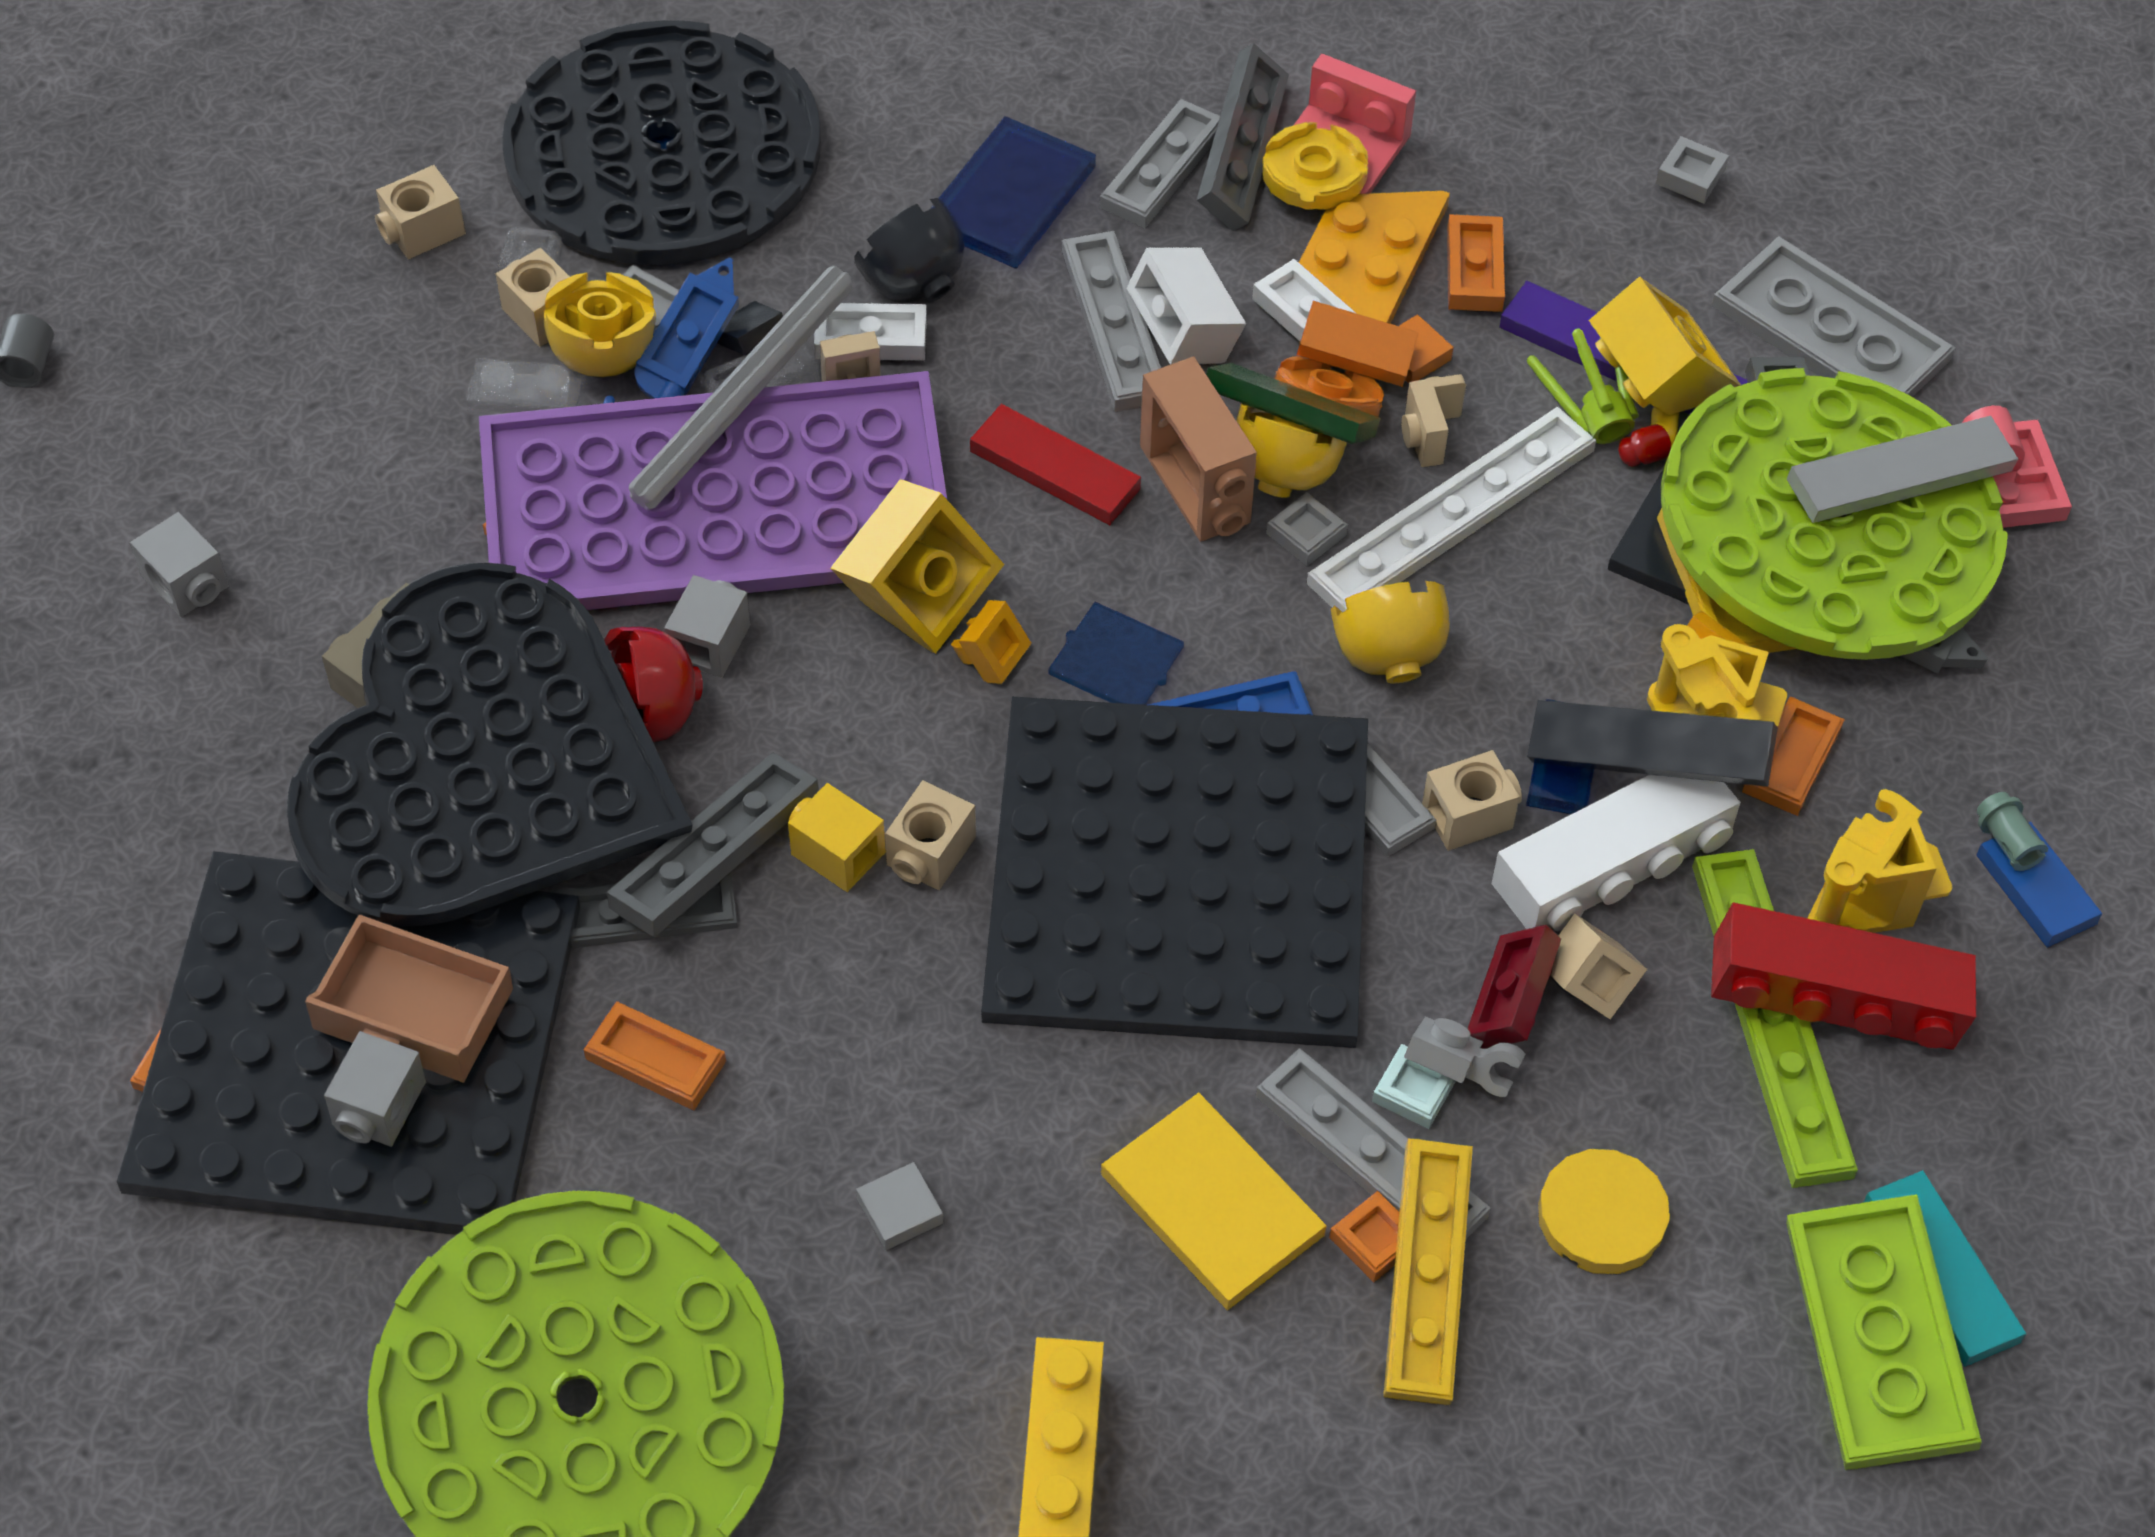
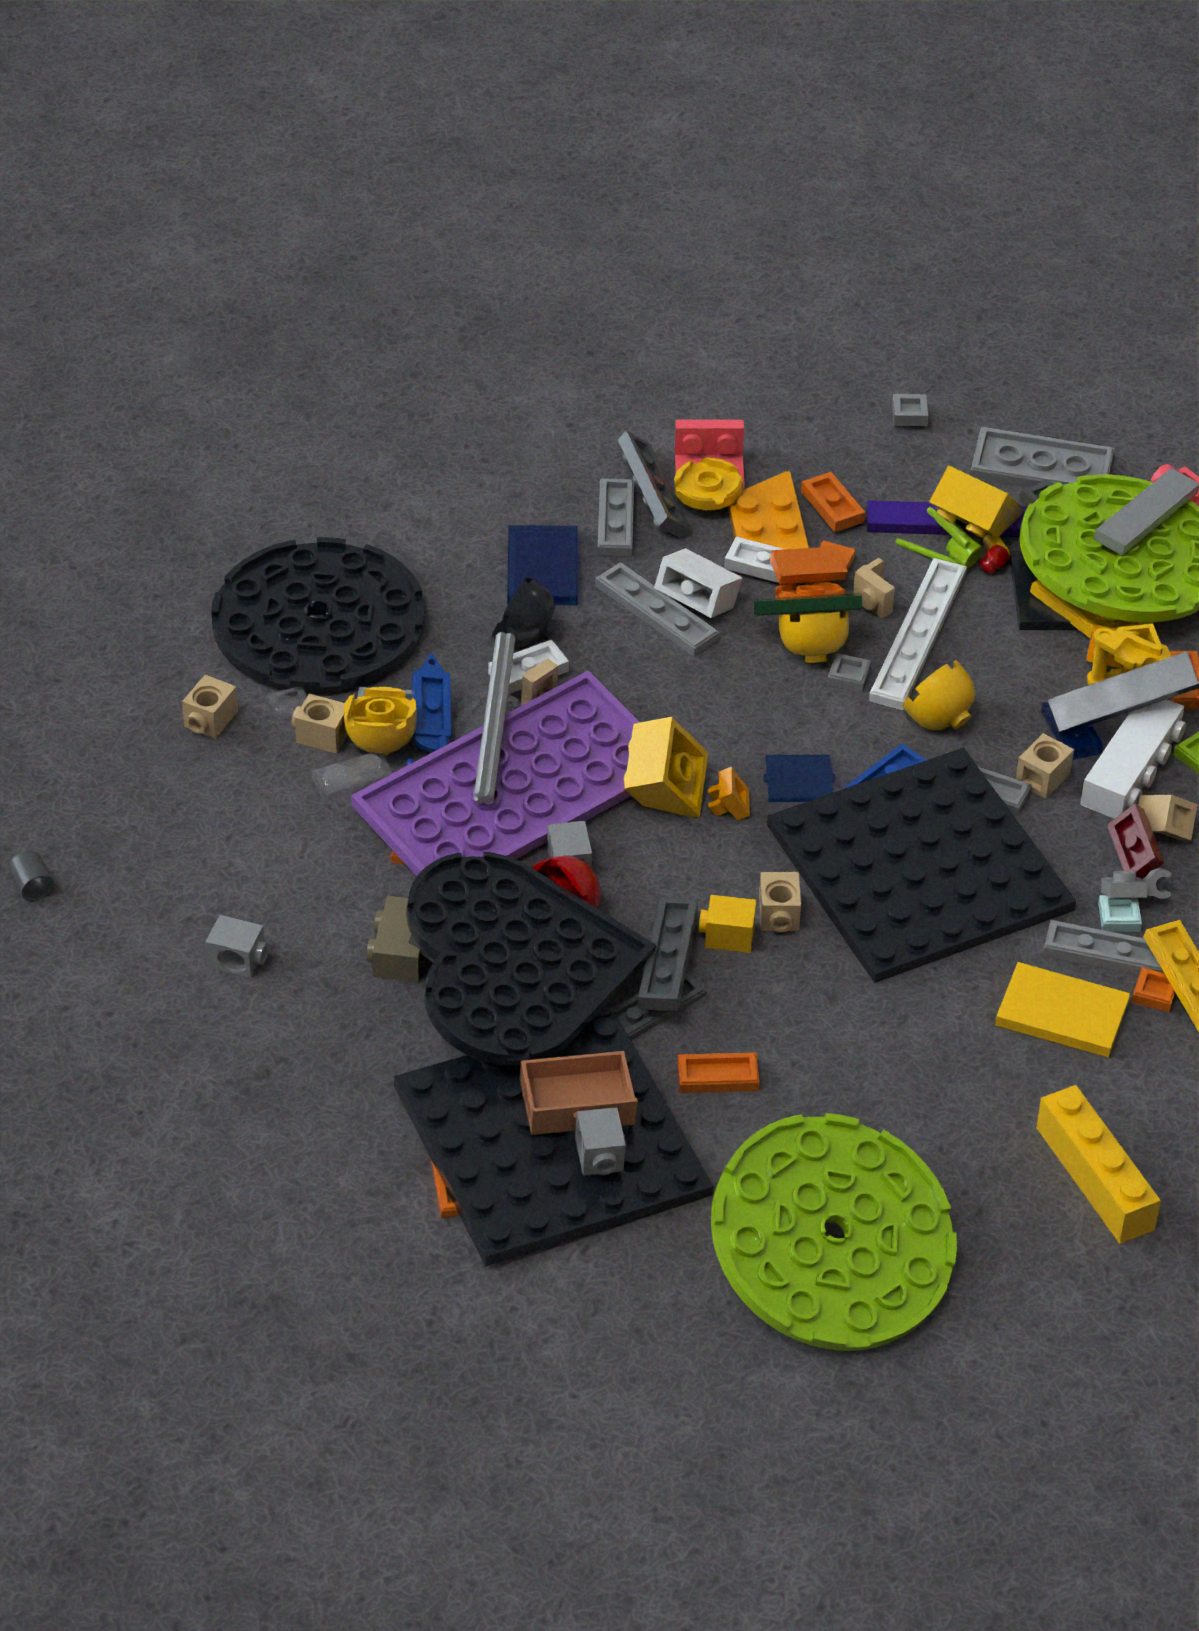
camera: 30 degrees left, 10 degrees down
(749, 327) = (463, 690): black tile -> none
(899, 1206) = (907, 1083): light grey tile -> none
(1055, 464) = (686, 694): red tile -> none
(1197, 449) = (741, 658): nougat window -> none

